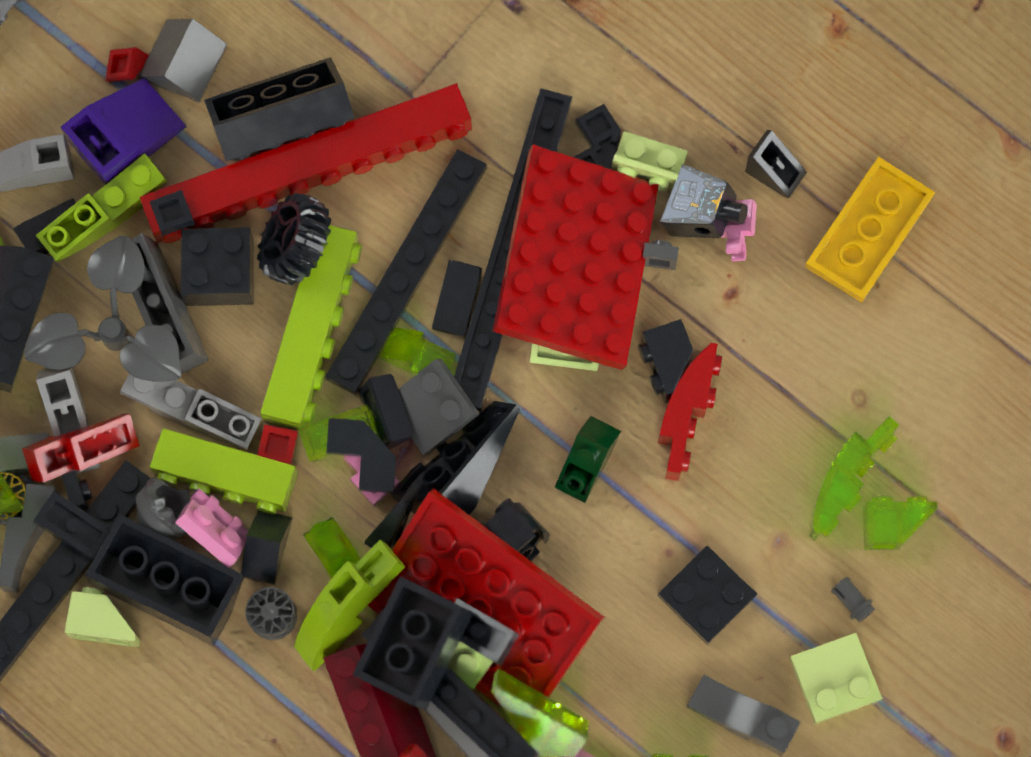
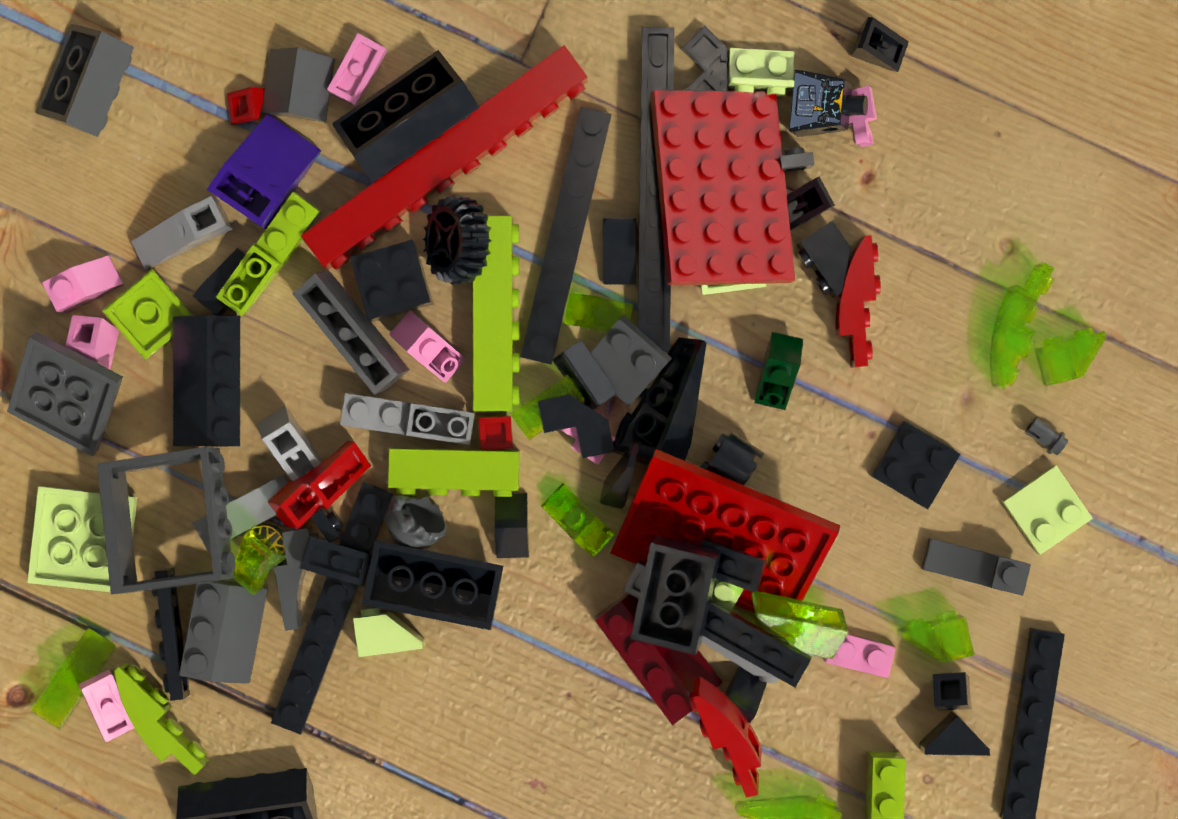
camera: 15 degrees left, 15 degrees up
(148, 356) = (271, 399): dark grey plant -> none
(172, 212) = (336, 245): black plate -> none
(213, 527) = (463, 535): bright pink plate -> none
(234, 341) = (427, 346): none -> bright pink slope
(245, 58) = (357, 70): none -> bright pink plate
(271, 613) = (534, 586): dark grey wheel -> none
(338, 606) = (599, 563): lime slope -> none
(661, 299) = (808, 202): none -> black slope
(869, 229) = (981, 84): yellow plate -> none

